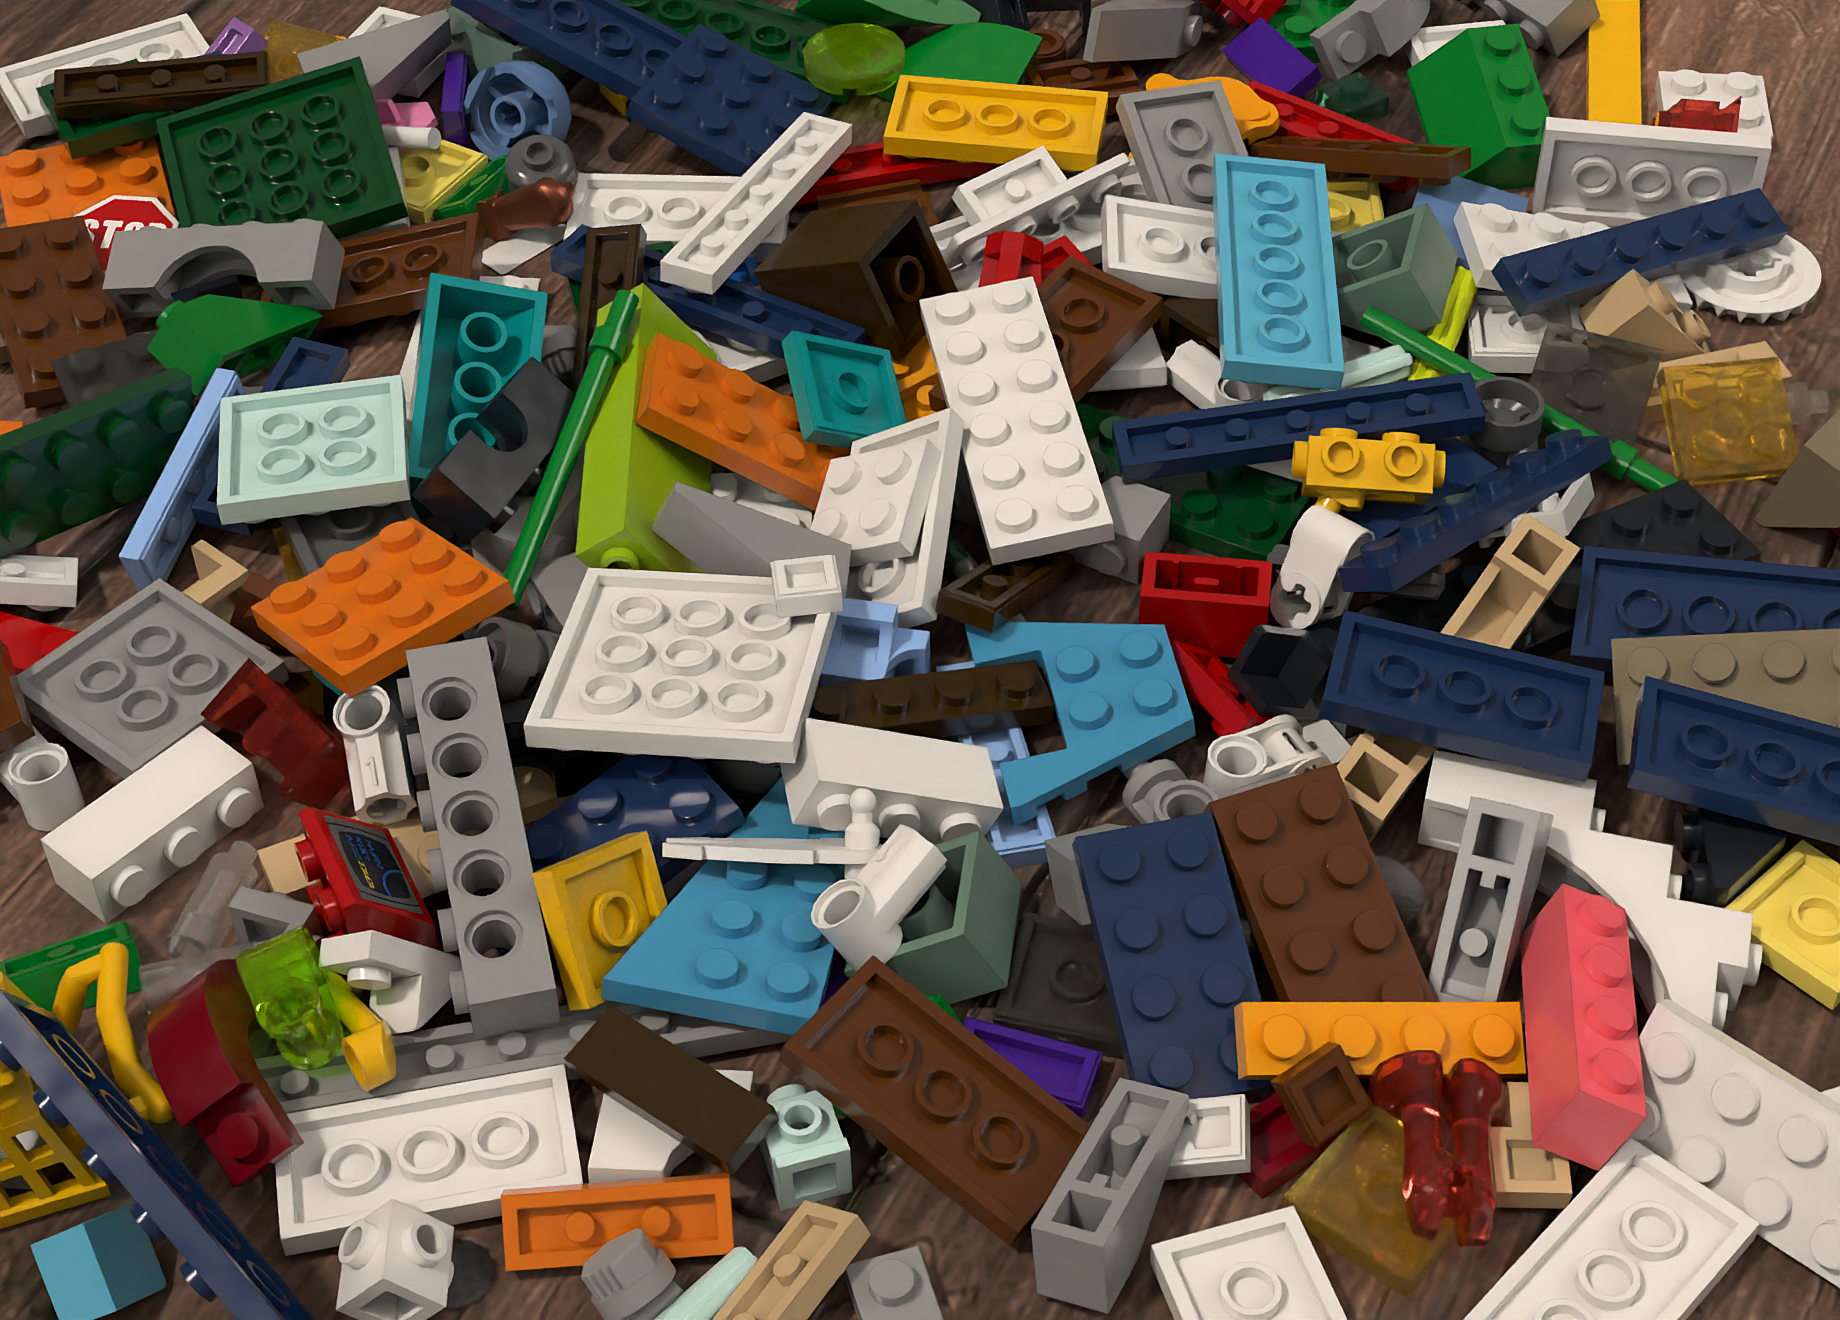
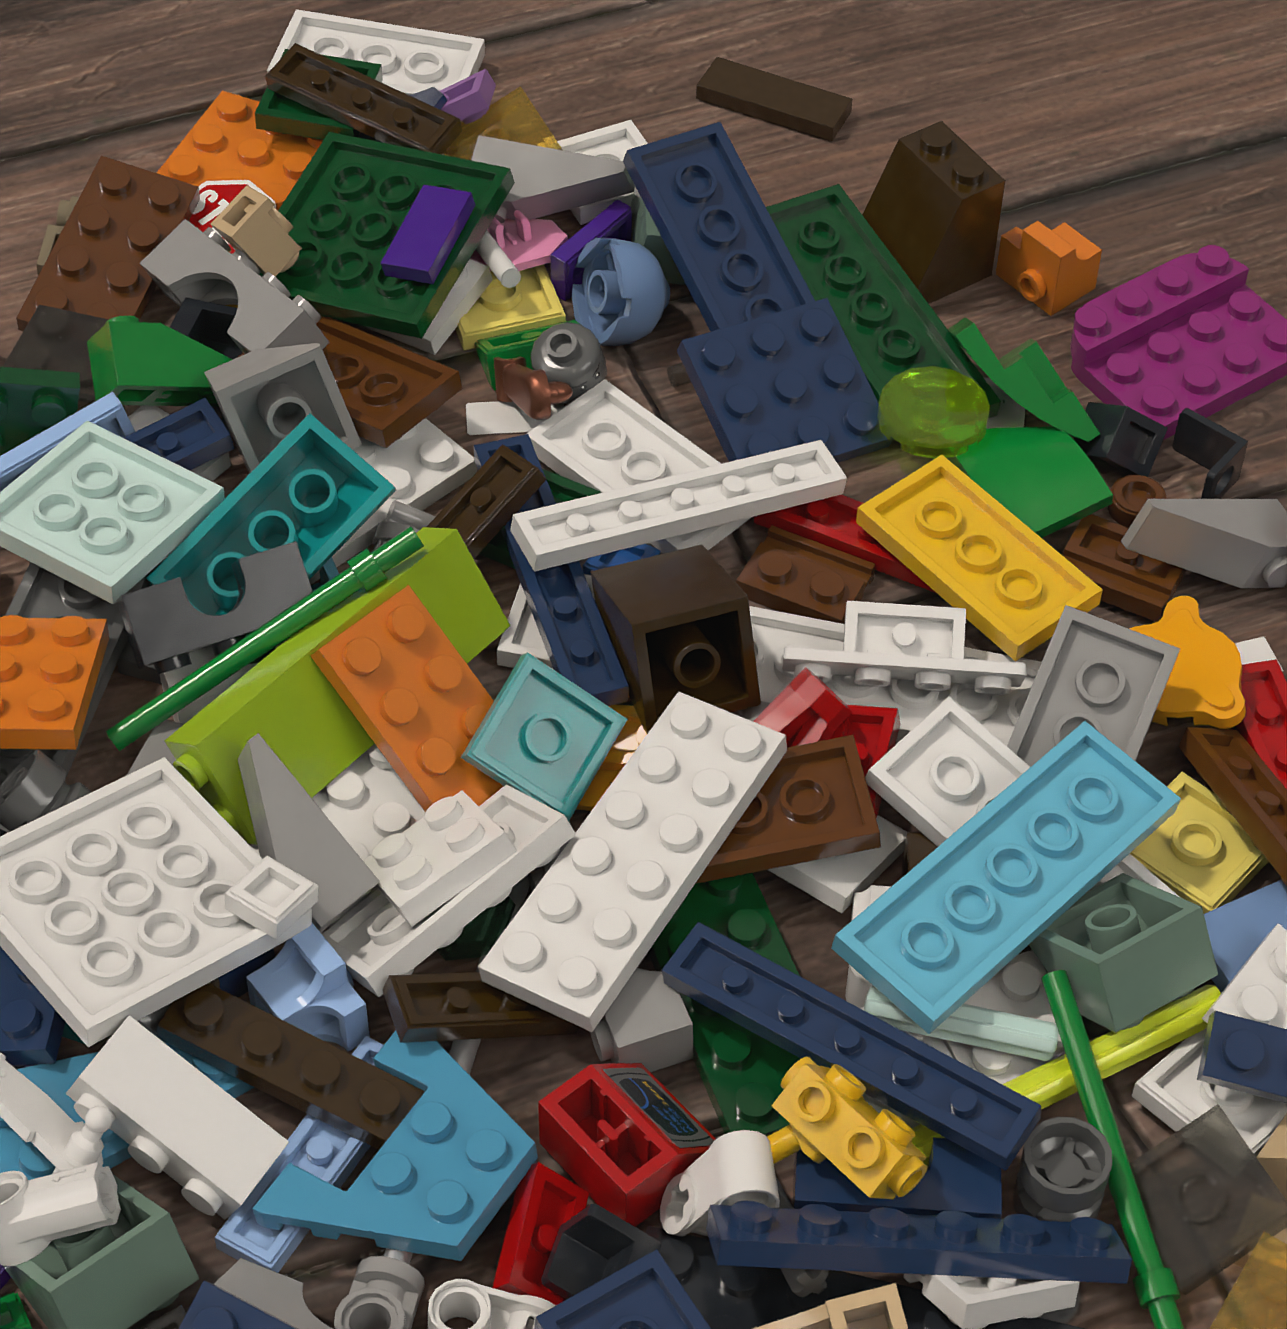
camera: 40 degrees right, 5 degrees up
(193, 196) = (258, 231): none -> tan brick
(345, 133) = (428, 234): none -> dark purple tile
(363, 302) = (272, 392): none -> light grey slope

